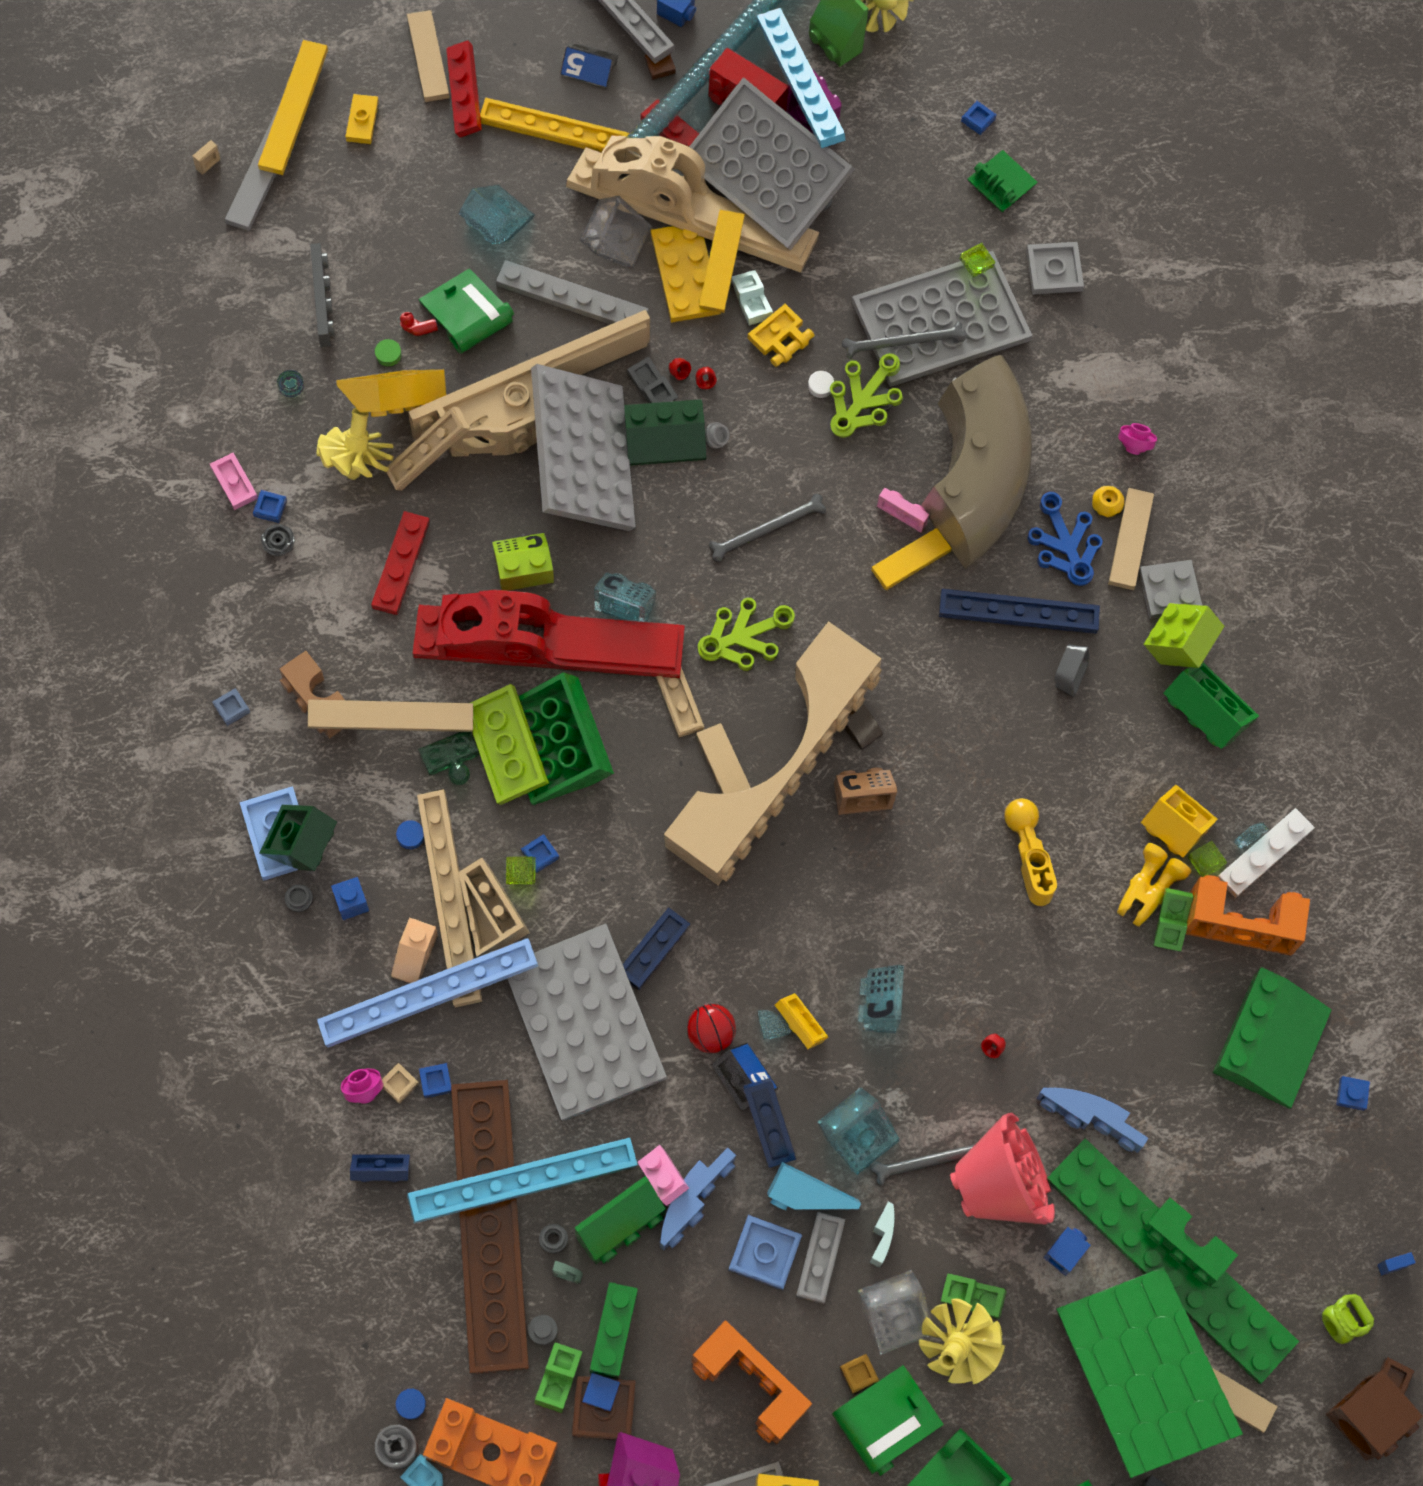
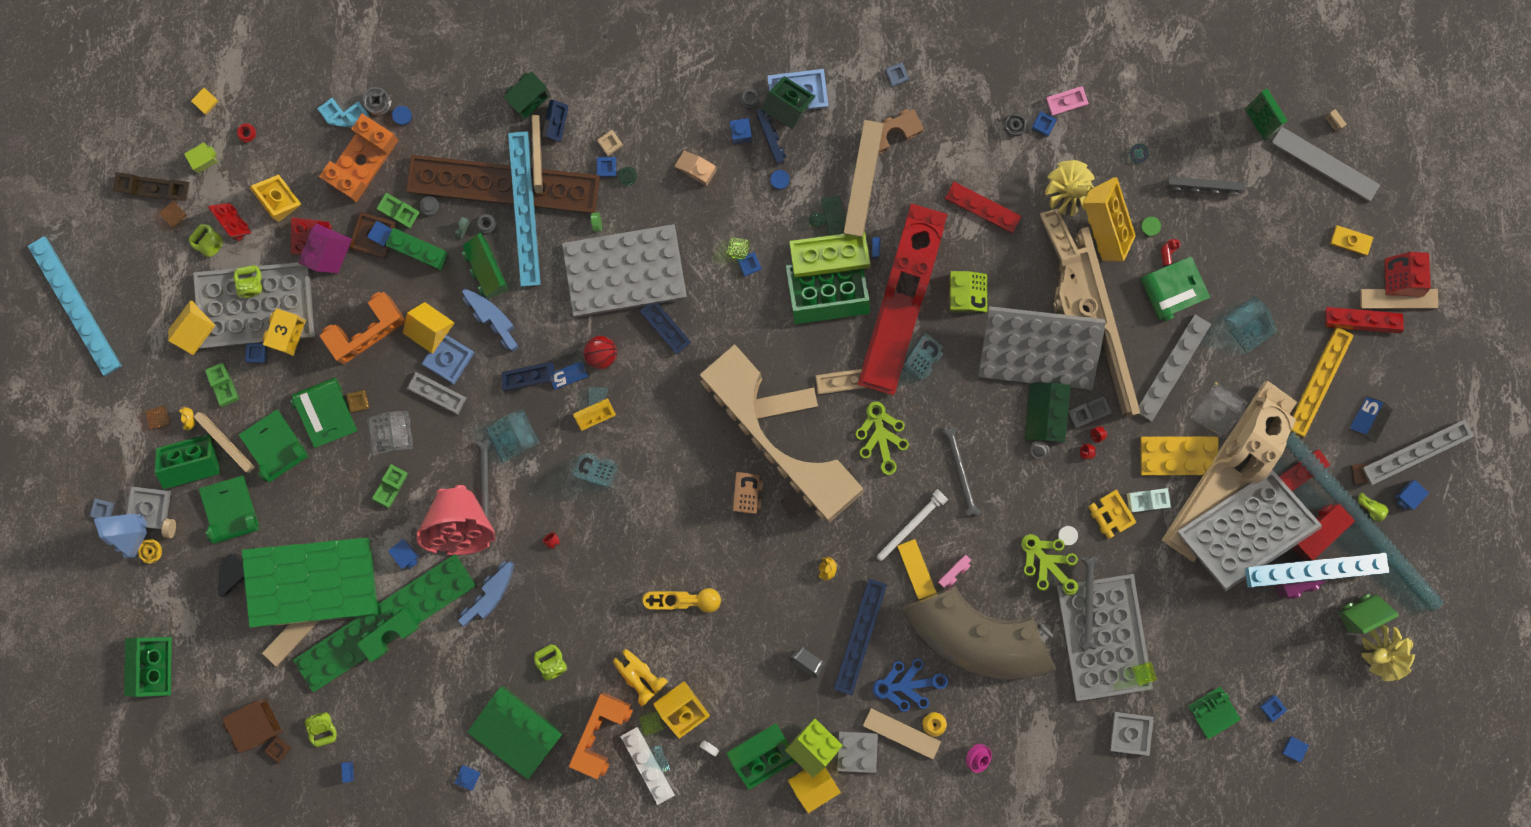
camera: 110 degrees right, 15 degrees up
(216, 224) = (1266, 114): none -> green tile
(293, 107) = (1367, 190): yellow tile -> none
(351, 856) = (771, 137): none -> dark blue plate
(351, 1212) = (526, 95): none -> dark green brick
(362, 1085) = (611, 117): dark pink plate -> none
(395, 45) = (1407, 274): none -> red slope
(427, 993) = (663, 170): light blue plate -> none
(443, 1047) = (627, 175): none -> clear green plate
(447, 885) = (728, 197): tan plate -> none
(455, 1172) = (537, 157): none -> tan tile
(484, 686) = (875, 248): none -> blue tile
(489, 909) = (713, 222): tan wedge -> none
(520, 1076) = (596, 222): none -> bright green tile
(663, 1175) = (509, 300): bright pink plate -> none
(703, 38) = (1376, 510): none -> lime piece
(721, 261) = (1177, 481): yellow tile -> none
(726, 1290) = (426, 326): none -> yellow slope
(801, 1191) = (478, 392): medium azure slope -> none
(812, 548) = (937, 499): none -> white piece
(885, 1229) = (445, 437): light aqua slope -> none
(940, 669) = (827, 568): none -> yellow plate
(968, 1348) = (354, 470): light yellow piece -> none
(1022, 85) = (1295, 749): none -> blue tile
(1168, 1006) = (552, 667): none -> lime piece
(1173, 919) = (611, 686): bright green slope -> none
(1220, 774) = (709, 748): none -> white tile
(1238, 636) = (814, 791): none -> yellow slope

